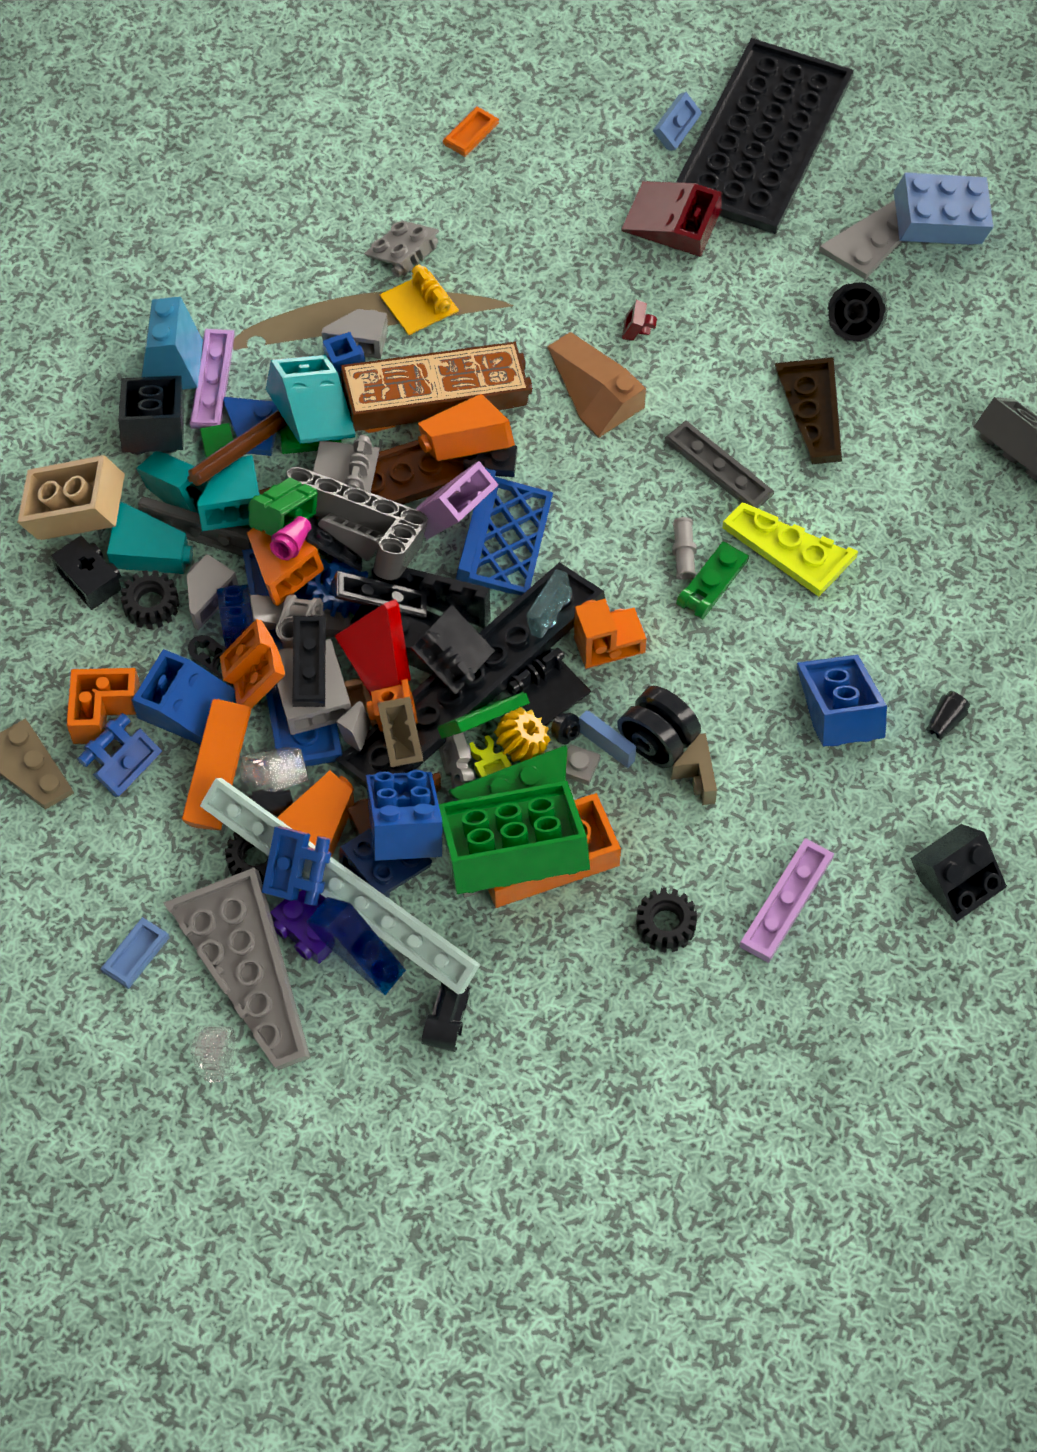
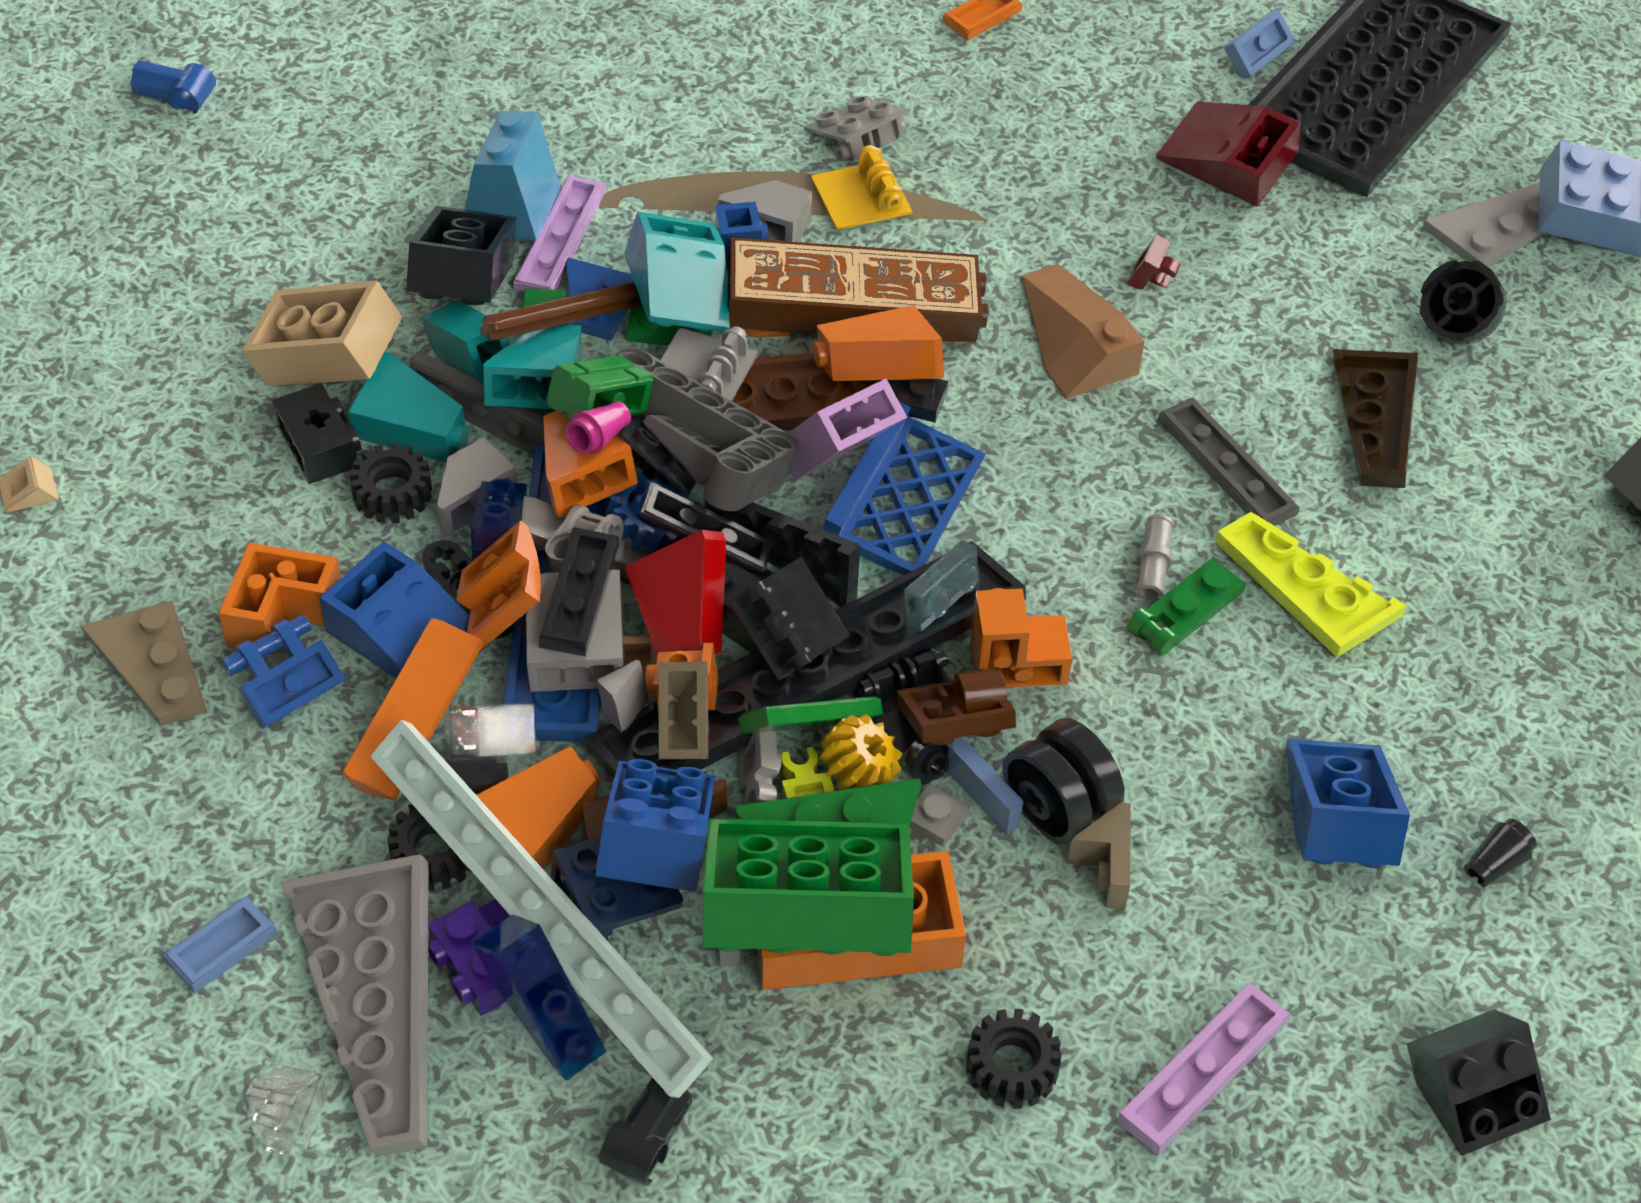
camera: 10 degrees right, 10 degrees down
(287, 862) = (467, 856): blue plate -> none
(579, 689) = (959, 708): none -> reddish brown plate

